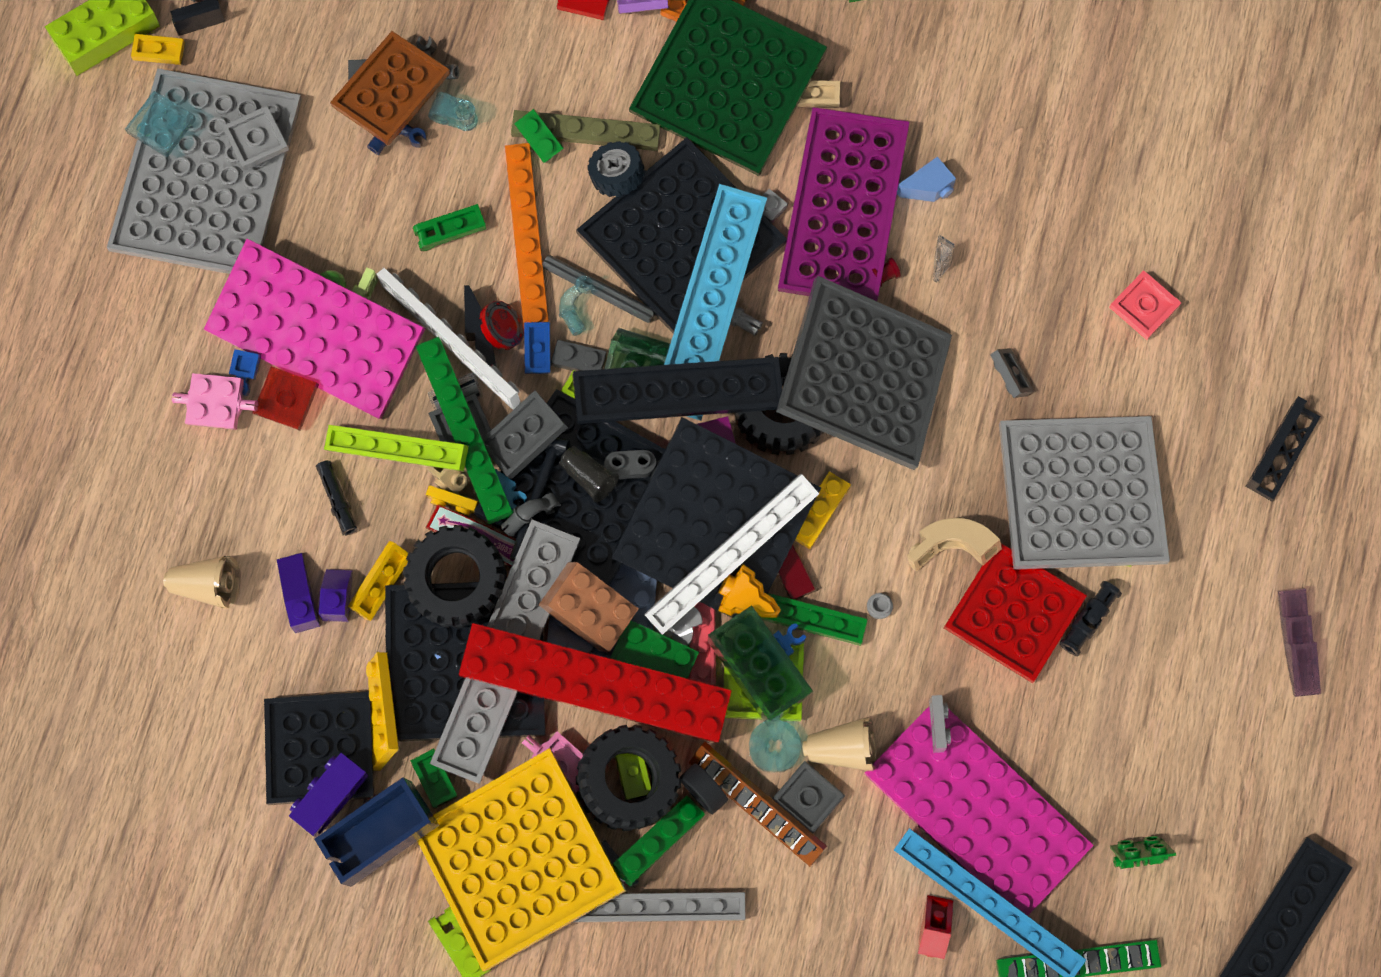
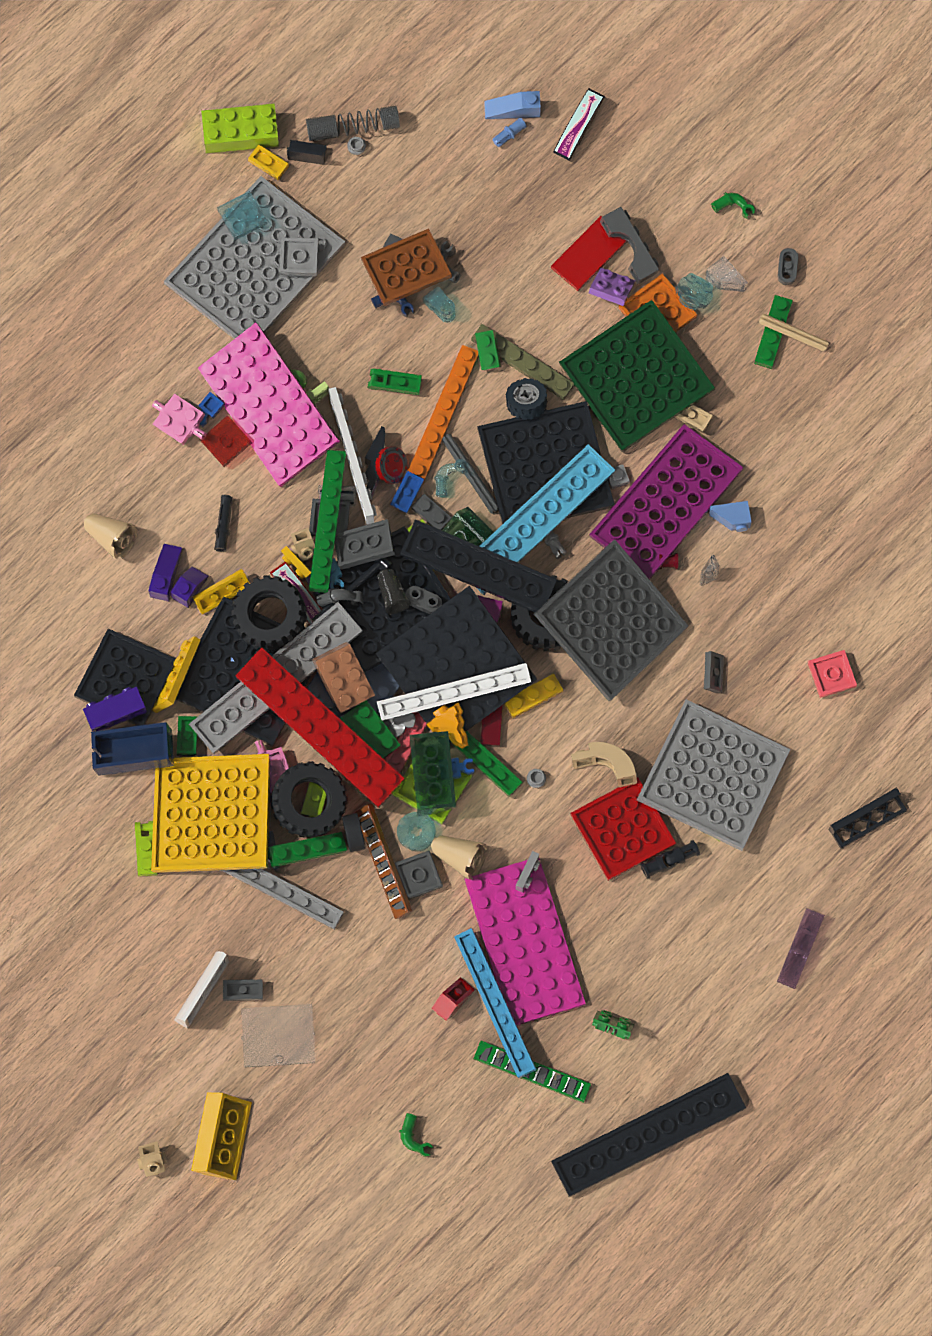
camera: 30 degrees right, 0 degrees up
(396, 448) = (277, 510): lime plate -> none

